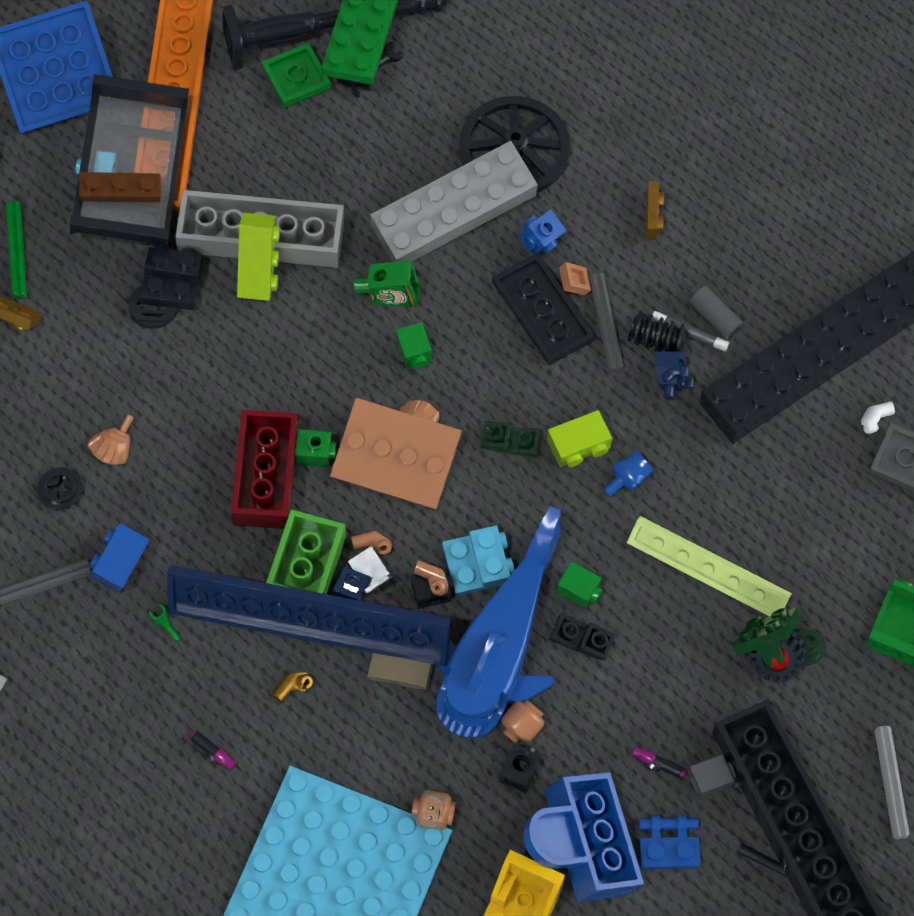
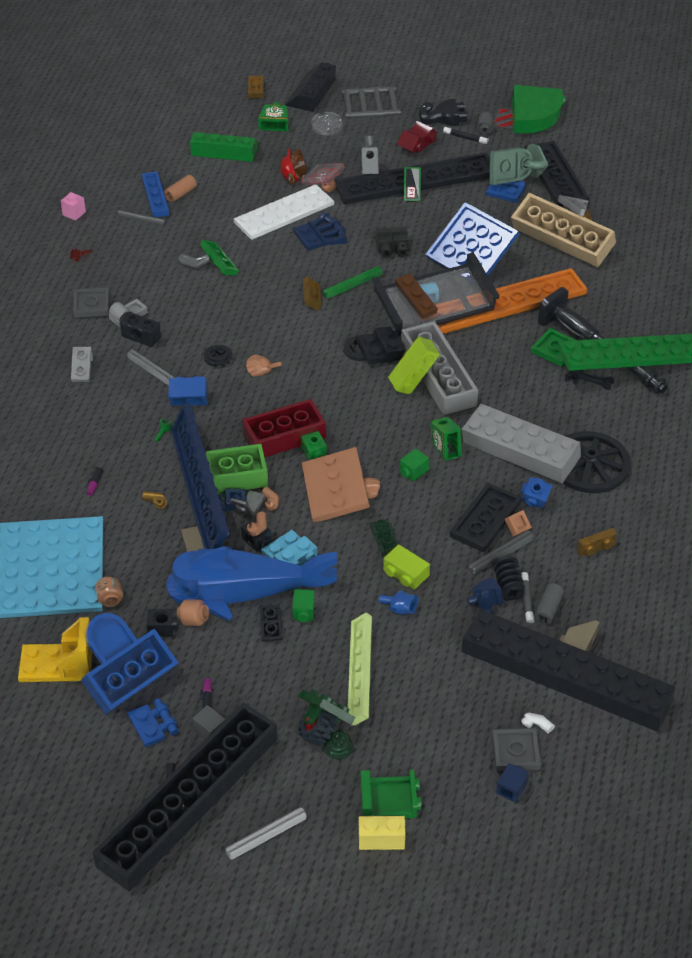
camera: 65 degrees right, 20 degrees down
(788, 308) = (582, 635): none -> dark tan slope

